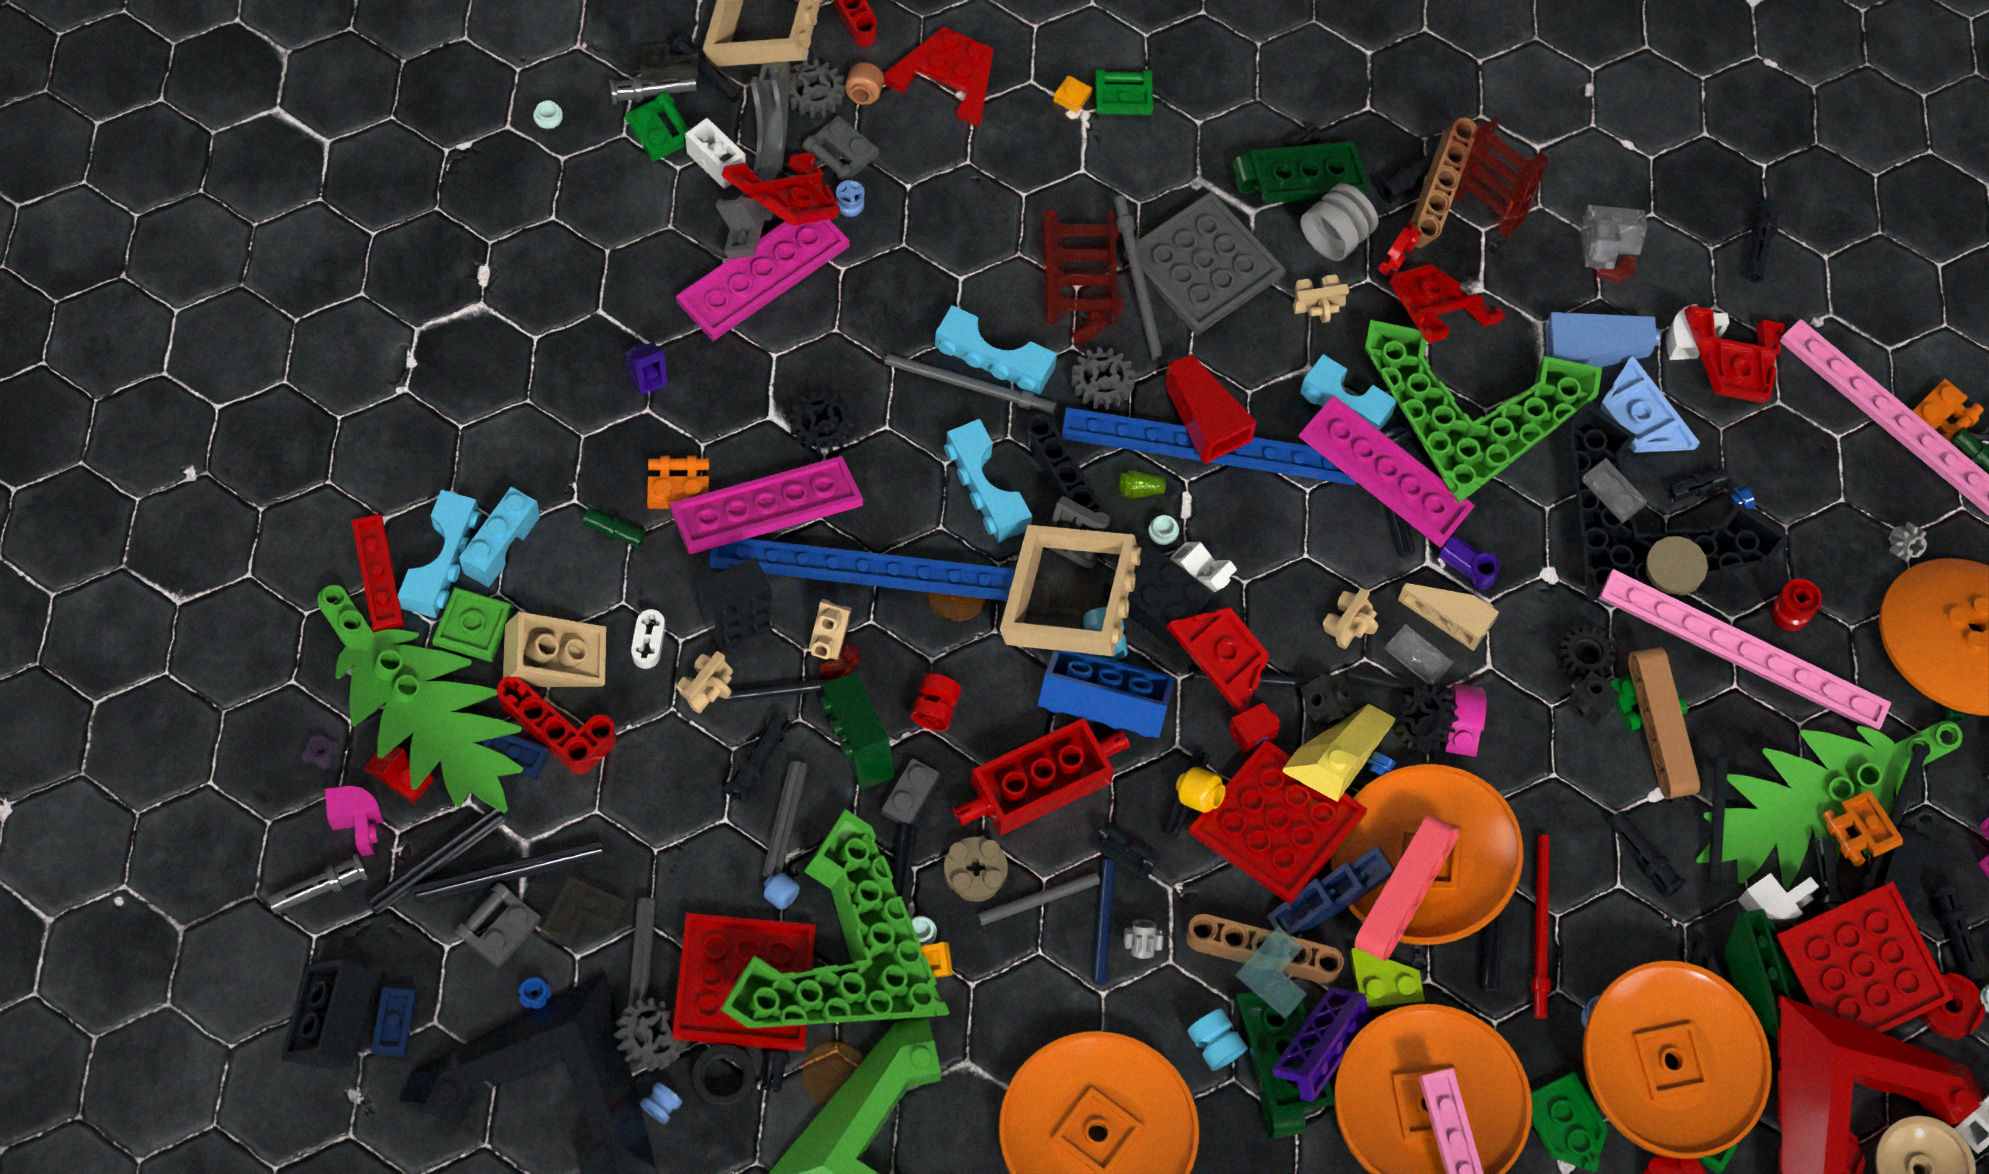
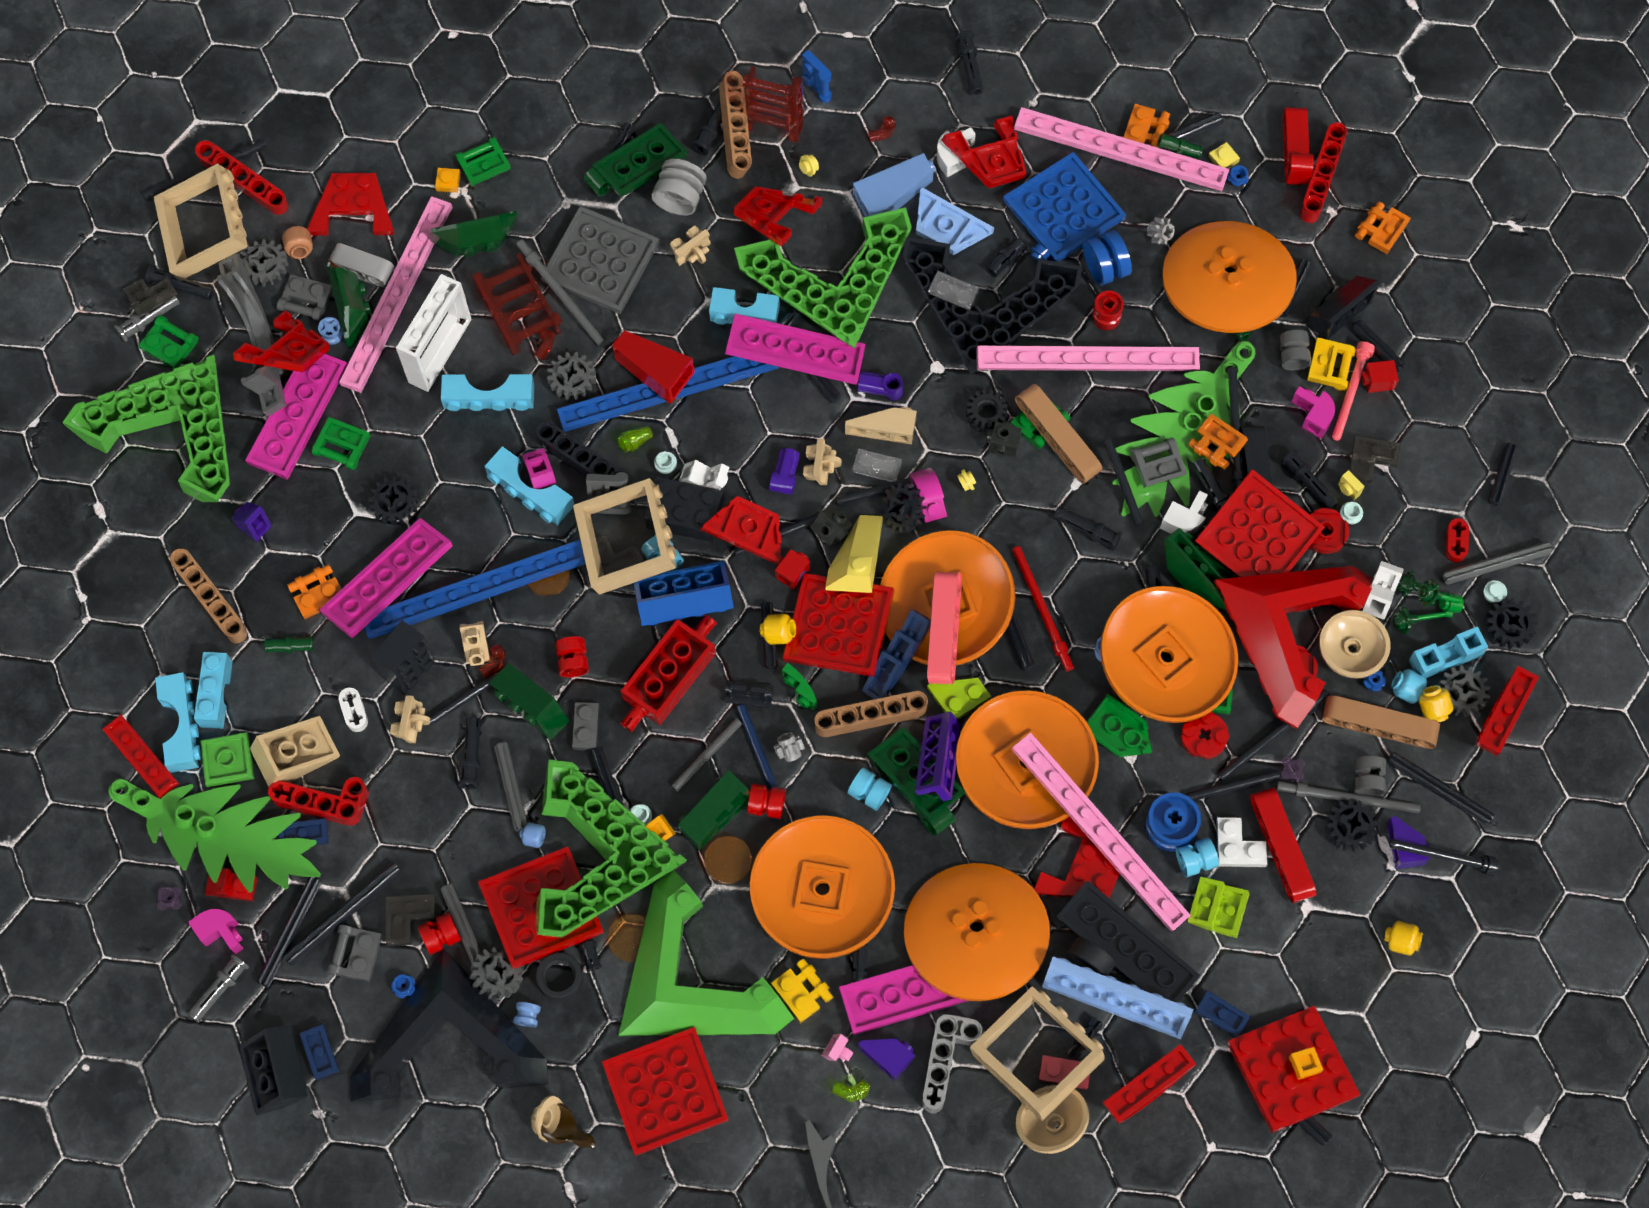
camera: 20 degrees left, 5 degrees up
(548, 114) = (83, 372): light aqua plate -> none
(552, 440) = (215, 603): none -> medium nougat beam
(608, 951) = (439, 933): none -> red wheel
(643, 190) = (184, 395): none -> bright green wedge
(712, 150) = (218, 342): white brick -> none
(802, 322) = (343, 436): none -> green plate
(888, 176) = (349, 301): none -> dark green wedge
(923, 141) = (366, 265): none -> light grey beam
(945, 193) = (394, 296): none -> bright pink plate
(985, 853) = (656, 742): dark tan plate -> none
(998, 211) = (444, 297): none -> white window
(1000, 1039) = (728, 860): none -> clear orange tile
(1009, 466) = (539, 469): none -> dark pink brick
(1013, 970) = (714, 810): none -> dark green wedge
(1025, 398) = (525, 416): dark grey bar -> none
(1072, 167) = (474, 235): none -> dark green wedge
(1082, 990) = (766, 801): none -> red wheel
(1194, 880) = (803, 692): none -> green slope
(1265, 976) = (879, 730): clear light blue plate -> none
(1298, 615) = (784, 477): none -> dark purple piece
(1380, 764) = (887, 552): blue plate -> none
(1405, 242) = (729, 194): red plate -> none
(1507, 268) = (808, 164): none -> light yellow plate
(1521, 724) = (967, 480): none -> light yellow plate
(1567, 171) = (816, 75): none -> blue plate
(1611, 232) = (866, 106): clear brick -> none
(1676, 565) = (1017, 322): dark tan tile -> none
(1771, 827) = (1160, 469): none -> dark grey plate
(1799, 459) = (1064, 207): none -> blue plate
(1825, 541) = (1107, 258): none -> blue wheel

